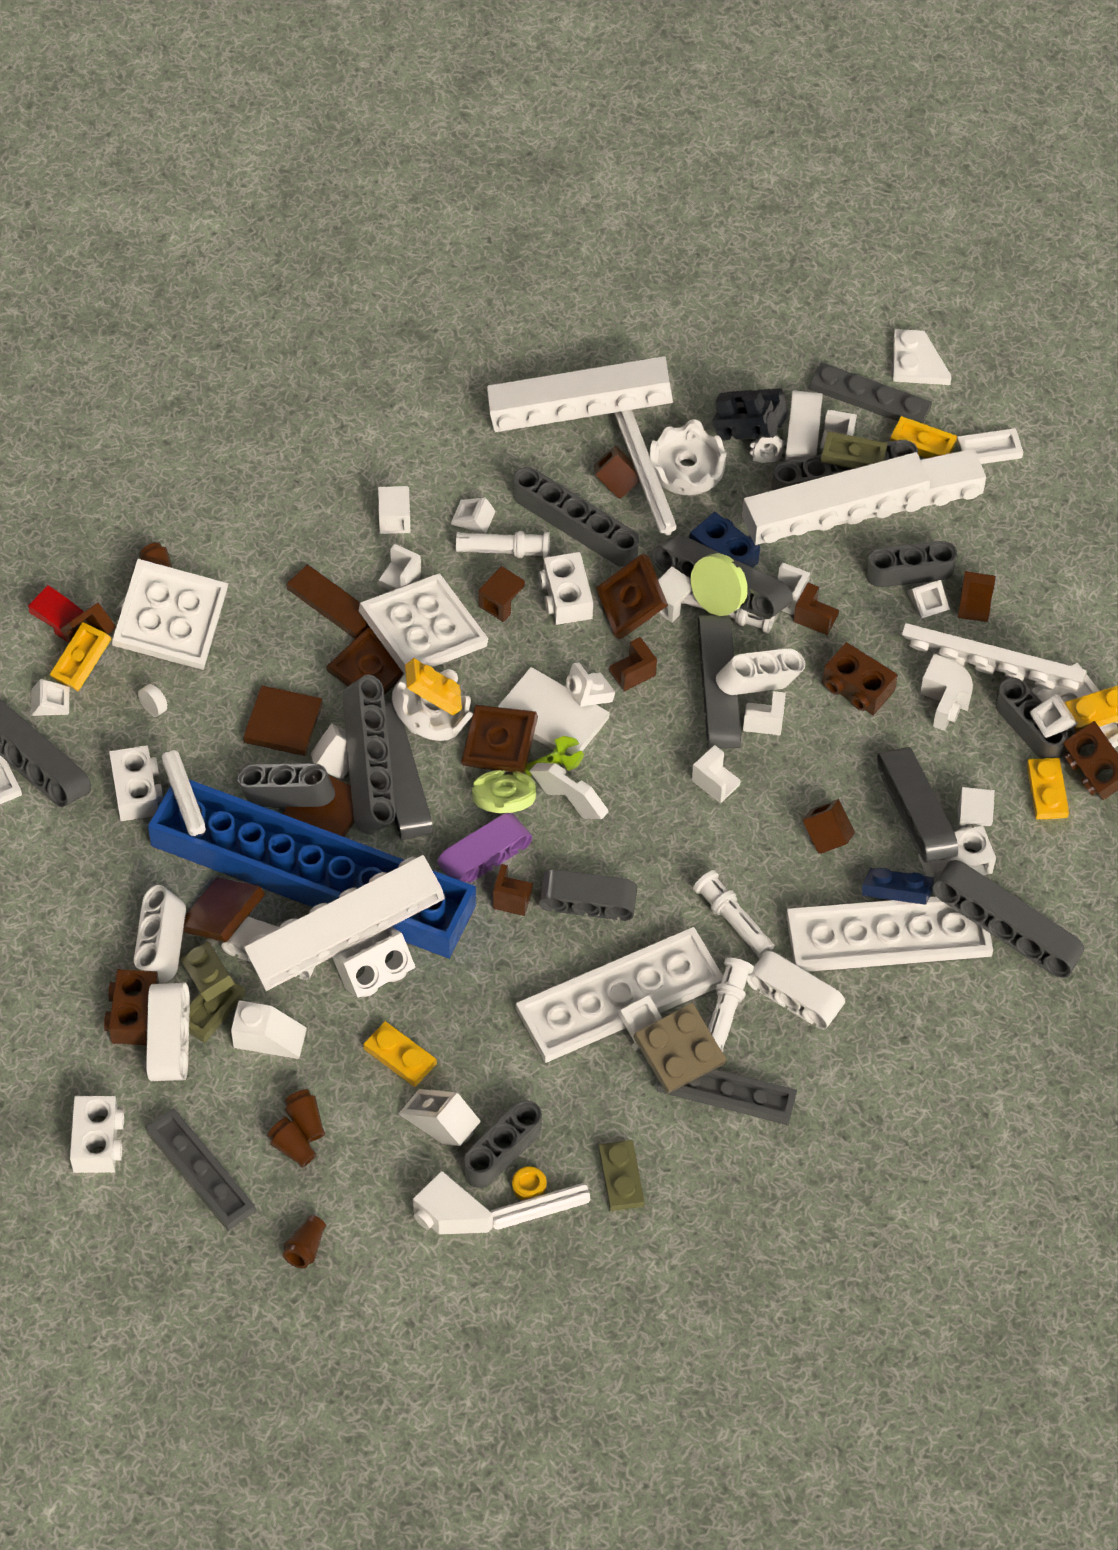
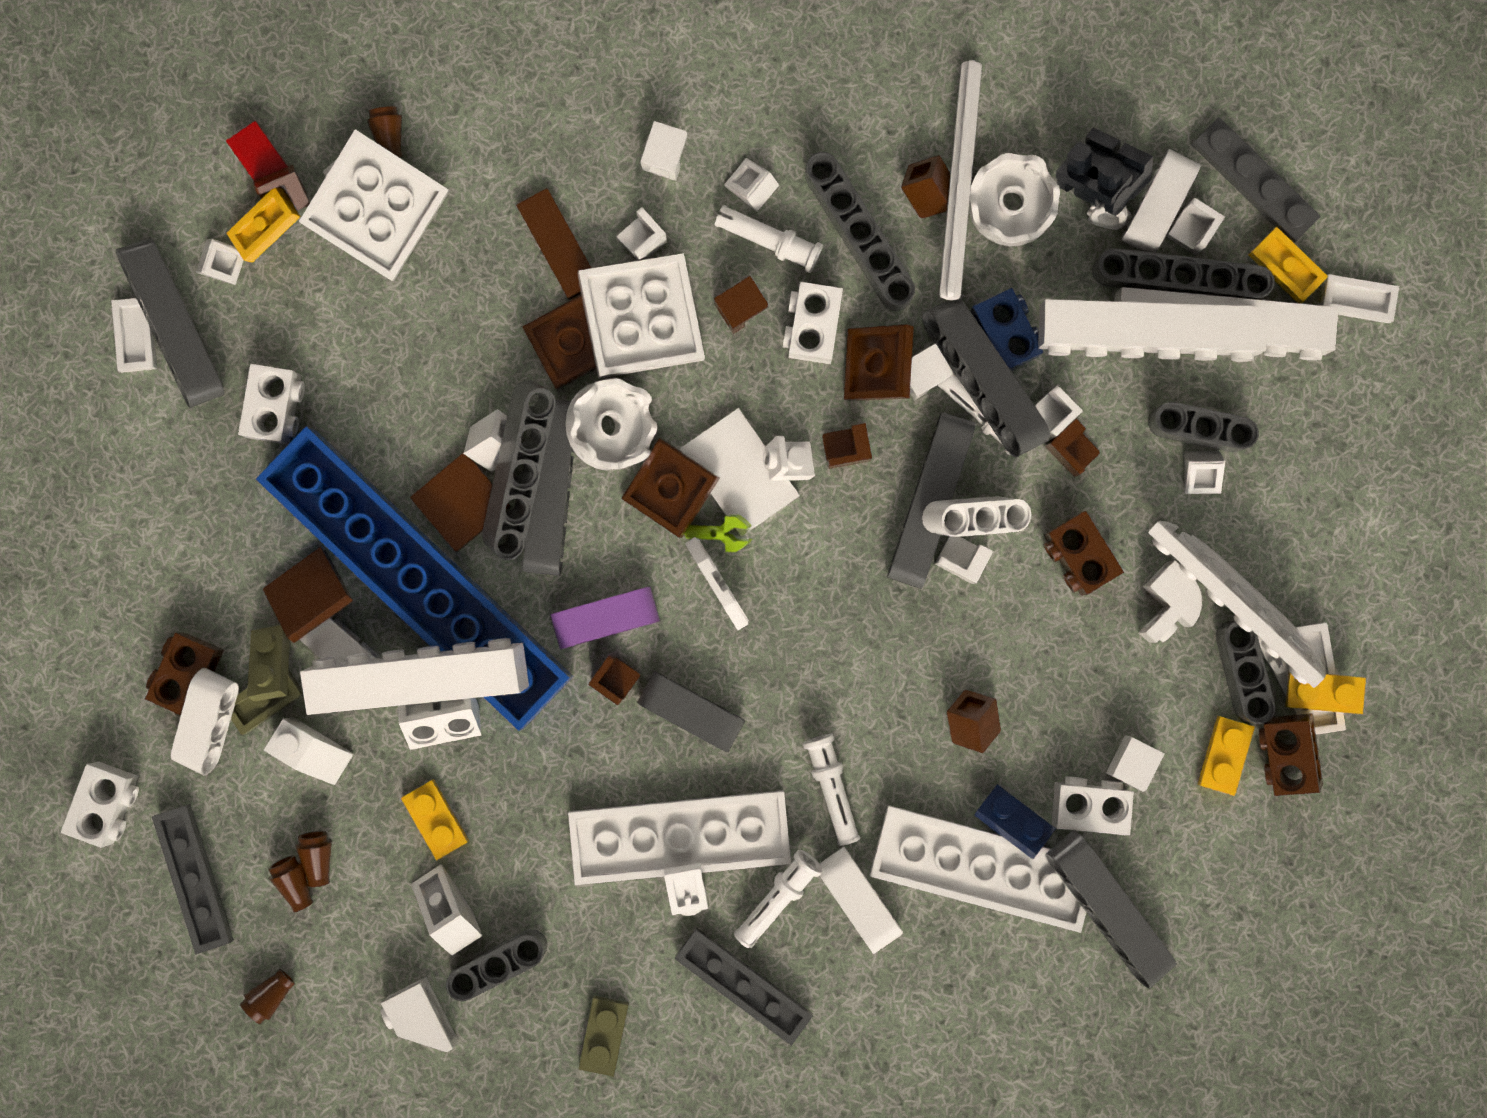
camera: 30 degrees right, 30 degrees up
(152, 700) = (323, 306): white tile -> none
(160, 933) = (235, 600): white beam -> none
(183, 793) = (301, 456): white axle -> none
(283, 720) = (454, 377): reddish brown tile -> none
(286, 785) = (409, 463): dark grey beam -> none
(433, 686) = (614, 414): yellow plate -> none
(503, 792) = (649, 557): yellowish green tile -> none
(528, 1183) = (510, 1010): yellow tile -> none
(540, 1206) = (510, 1040): white axle -> none
(579, 394) = (925, 74): white brick -> none
(679, 1048) = (709, 935): dark tan plate -> none
(712, 776) = (881, 616): white panel -> none
(718, 584) = (973, 396): yellowish green tile -> none
(852, 450) = (1199, 270): olive plate -> none
(917, 359) = (1330, 149): white wing -> none
(917, 804) = (1074, 743): dark grey beam -> none
(976, 596) = (1254, 493): reddish brown panel -> none
(1053, 716) = (1268, 691): white slope -> none

